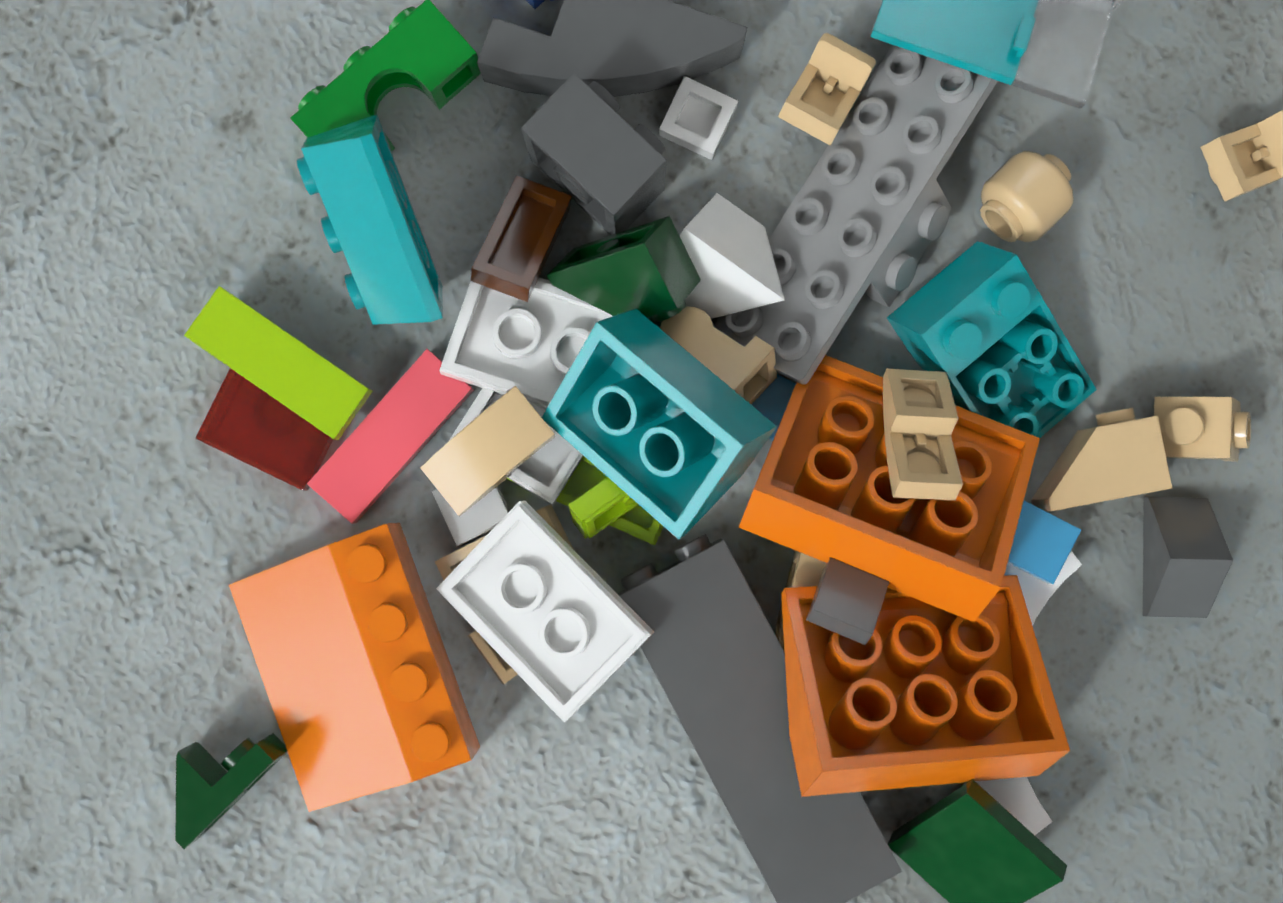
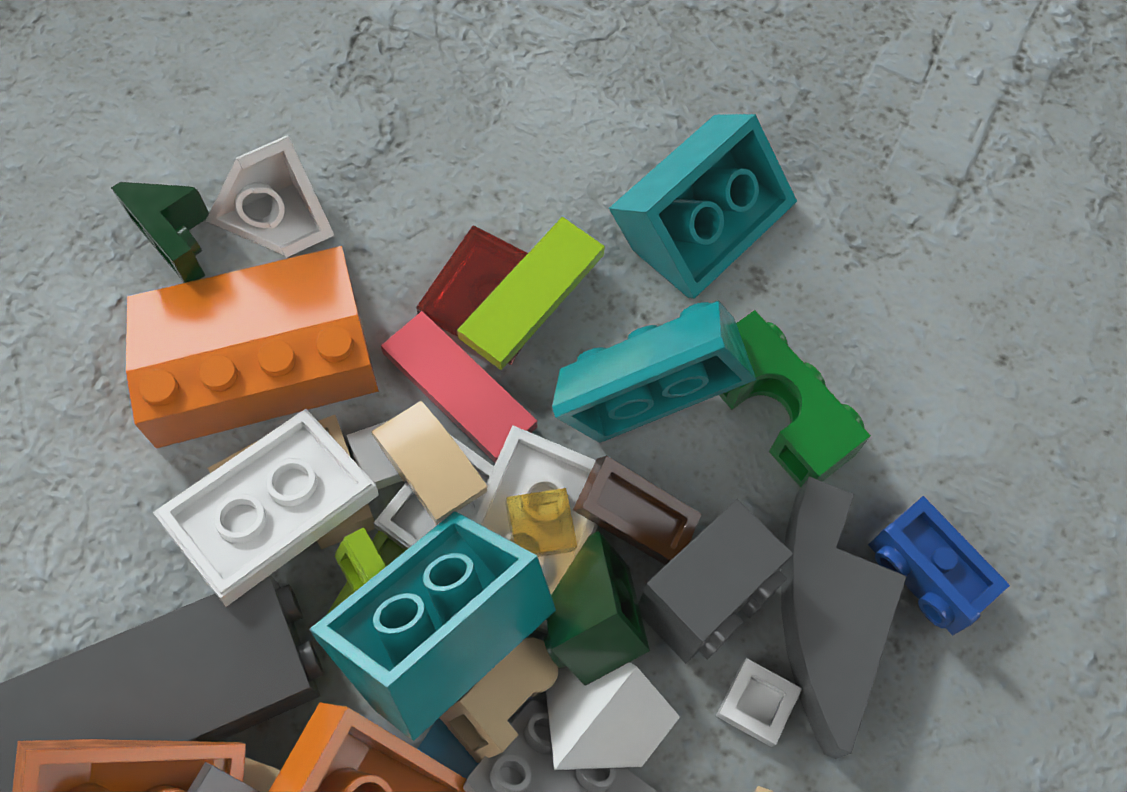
camera: 90 degrees right, 20 degrees down
(146, 176) = (705, 202): none -> teal slope
(183, 667) = (271, 201): none -> white slope
(545, 332) = (542, 522): none -> clear yellow tile

